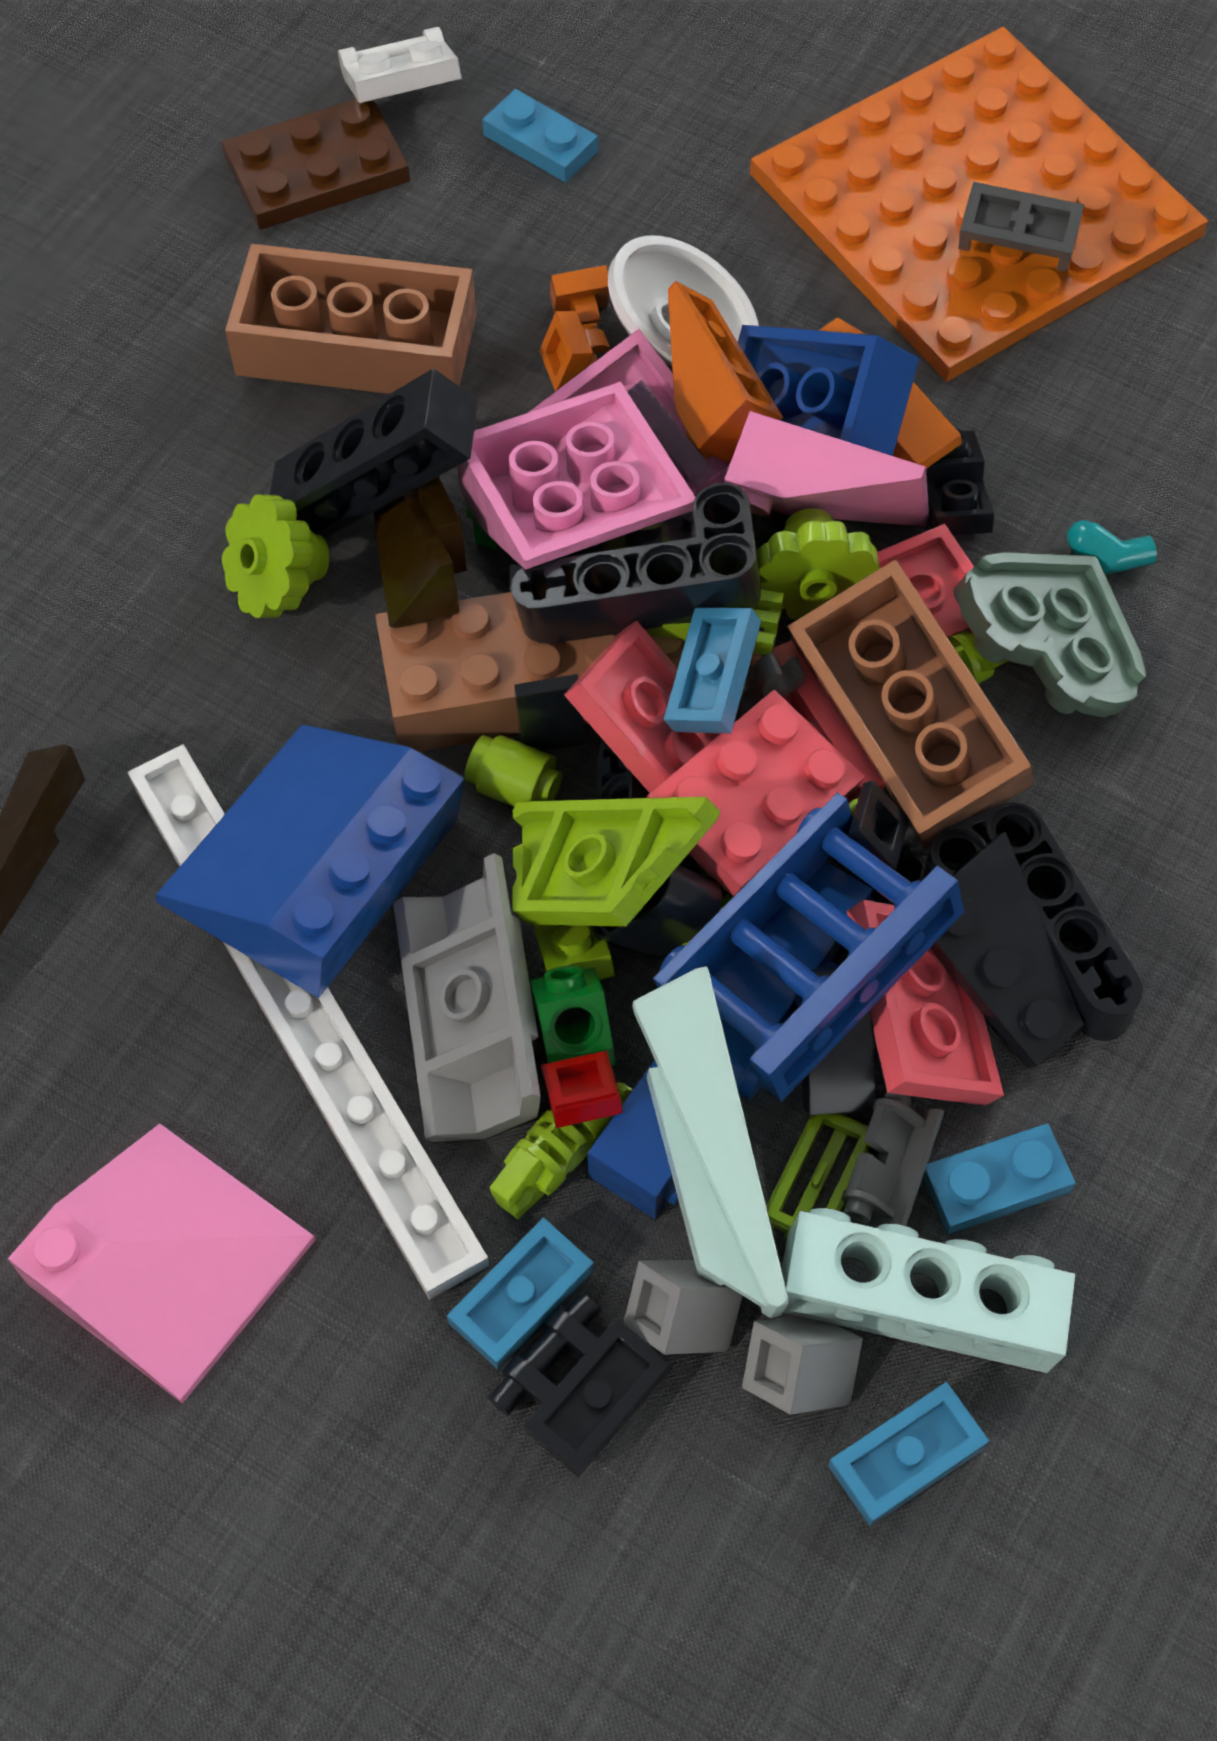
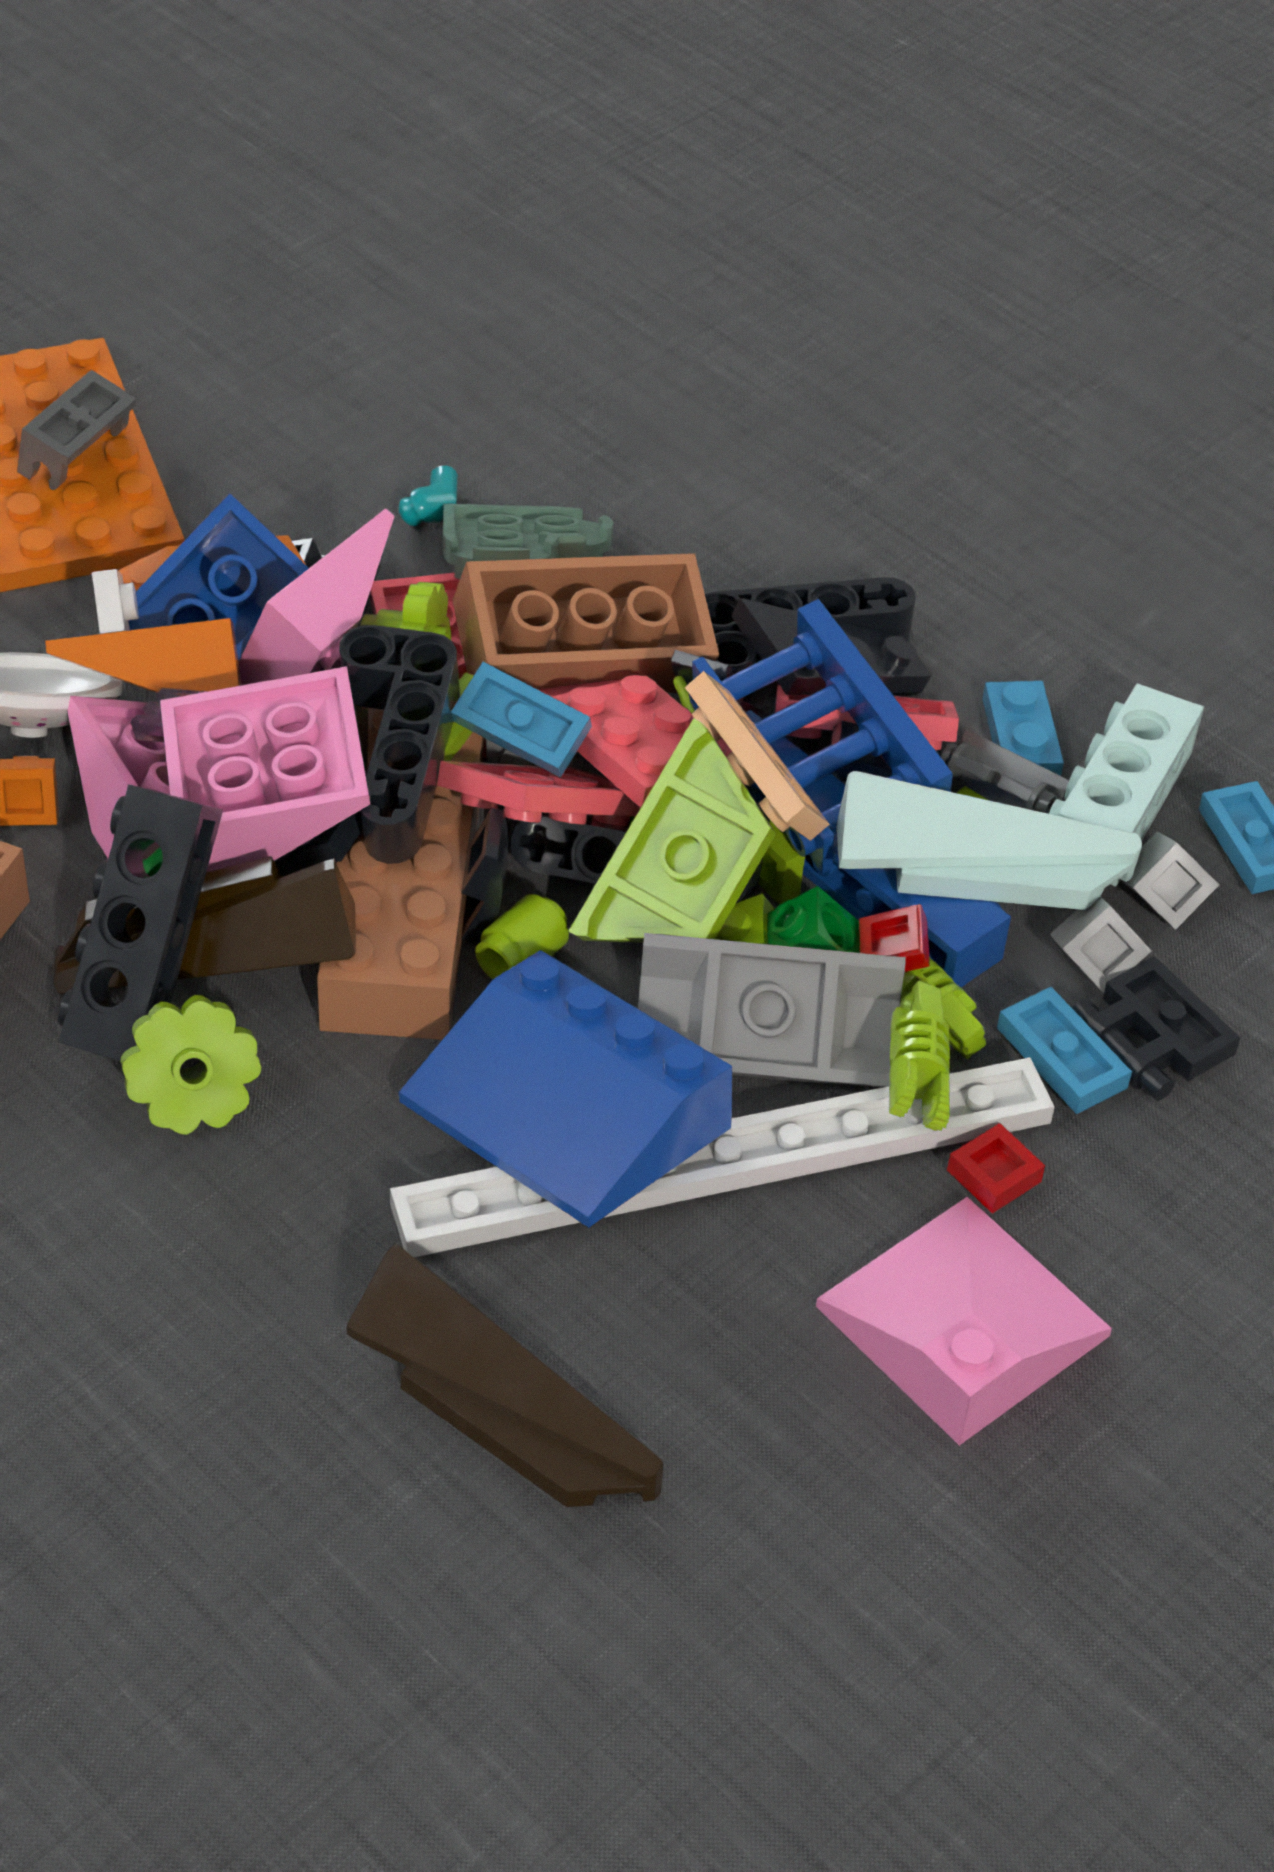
camera: 80 degrees left, 15 degrees down
(344, 1252) = (995, 1168): none -> red plate
(431, 1141) = (920, 1057): none -> lime hinge
(713, 878) = (755, 759): none -> light nougat plate
(739, 310) = (114, 601): none -> white plate

